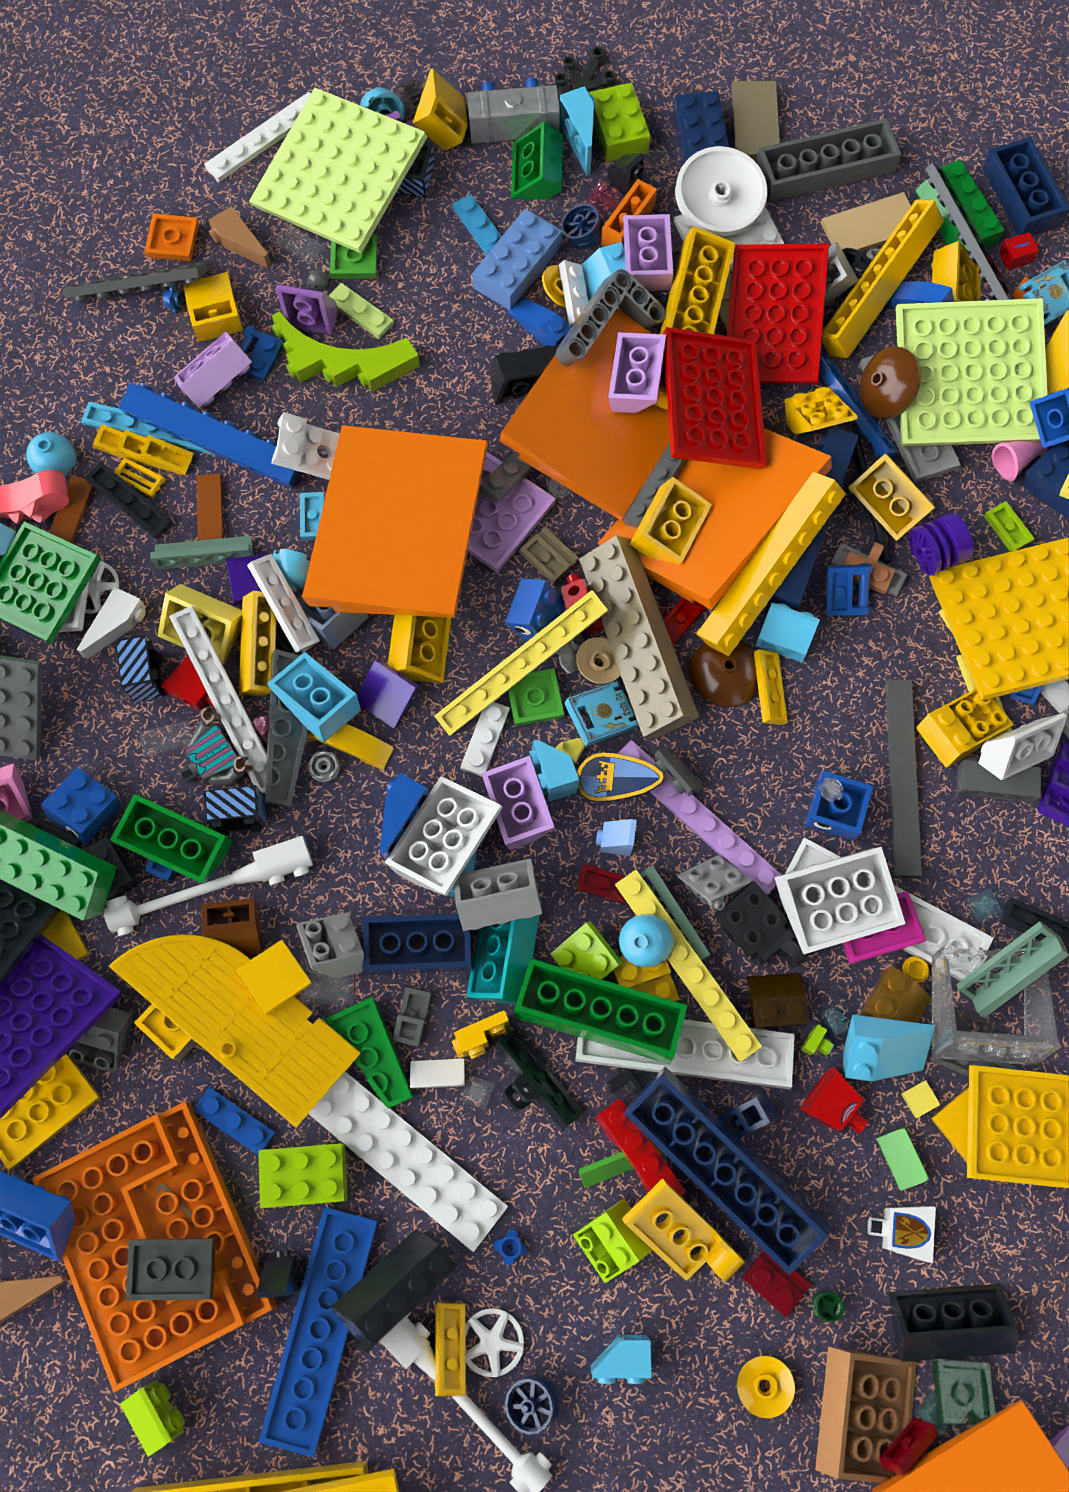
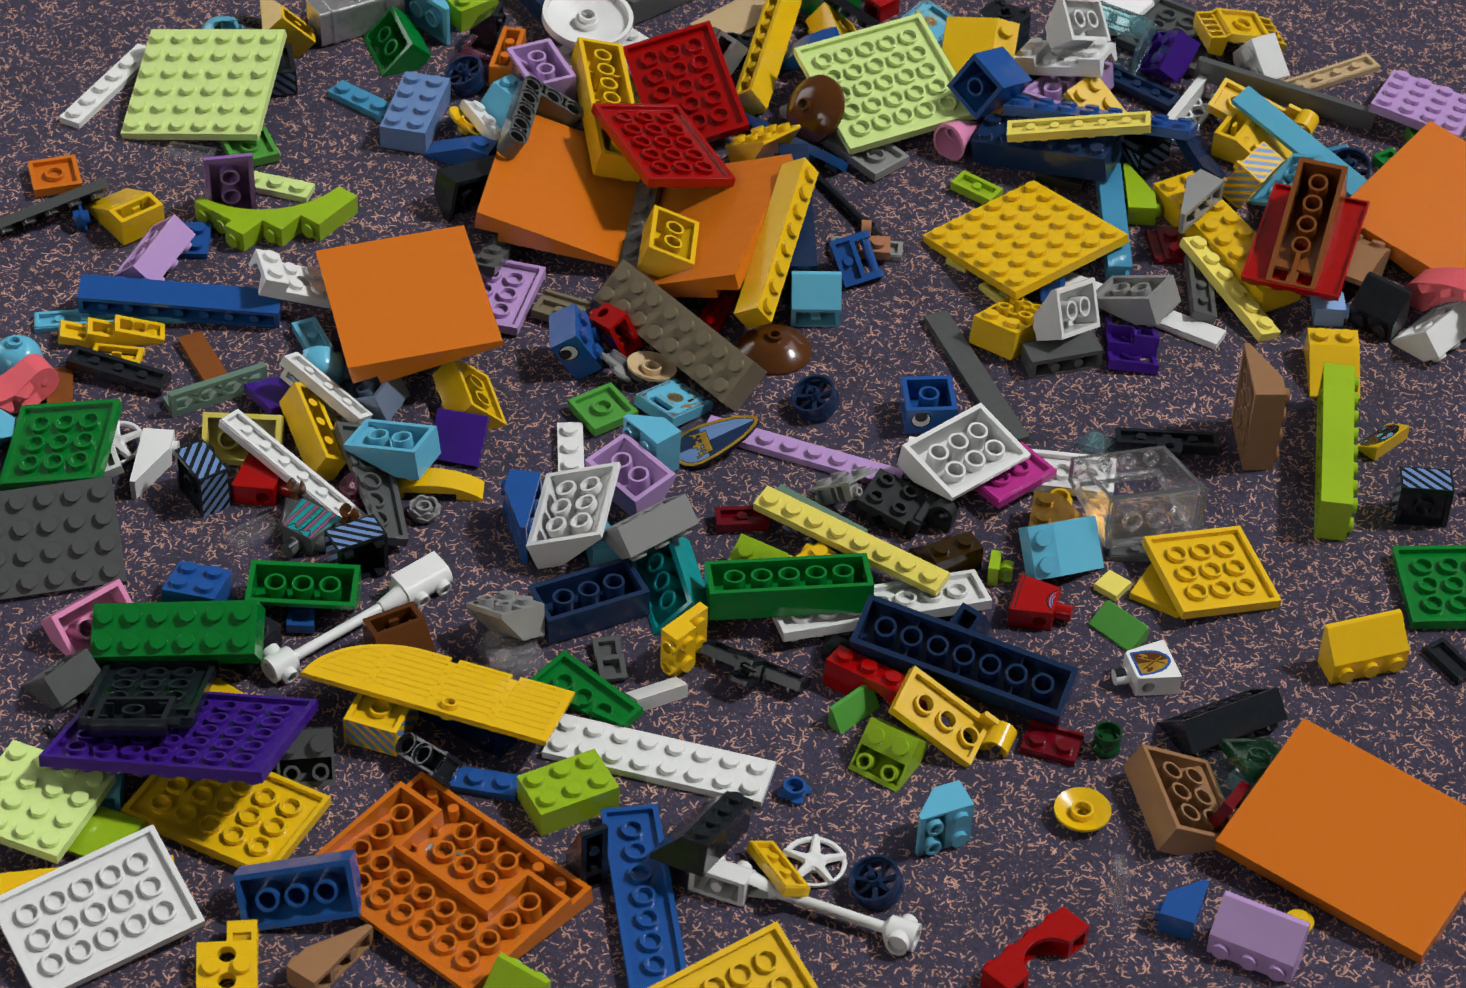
camera: 25 degrees left, 30 degrees down
(170, 1269) = (479, 875): pearl dark grey plate -> none
(194, 1094) = (428, 758): none -> black piece
(236, 237) = (127, 160): medium nougat slope -> none
(274, 977) = (463, 651): yellow tile -> none
(477, 1092) = (702, 695): clear plate -> none
(521, 663) = (579, 376): light yellow plate -> none
(558, 494) = (544, 259): clear plate -> none
(617, 837) = (737, 476): light blue slope -> none
(636, 371) = (581, 145): lavender slope -> none
(646, 940) = (804, 526): medium azure cylinder -> none
(683, 778) = (770, 416): dark grey slope -> none
(735, 757) = (811, 391): none -> dark blue wheel
(770, 687) = (821, 346): yellow tile -> none
(831, 789) = (914, 382): clear plate -> none
(834, 1021) = (1009, 550): clear light blue plate -> none
(891, 497) = (861, 187): yellow slope -> none
(941, 543) = (921, 207): dark purple wheel -> none
(1017, 972) = (1150, 454): sand green fence -> none

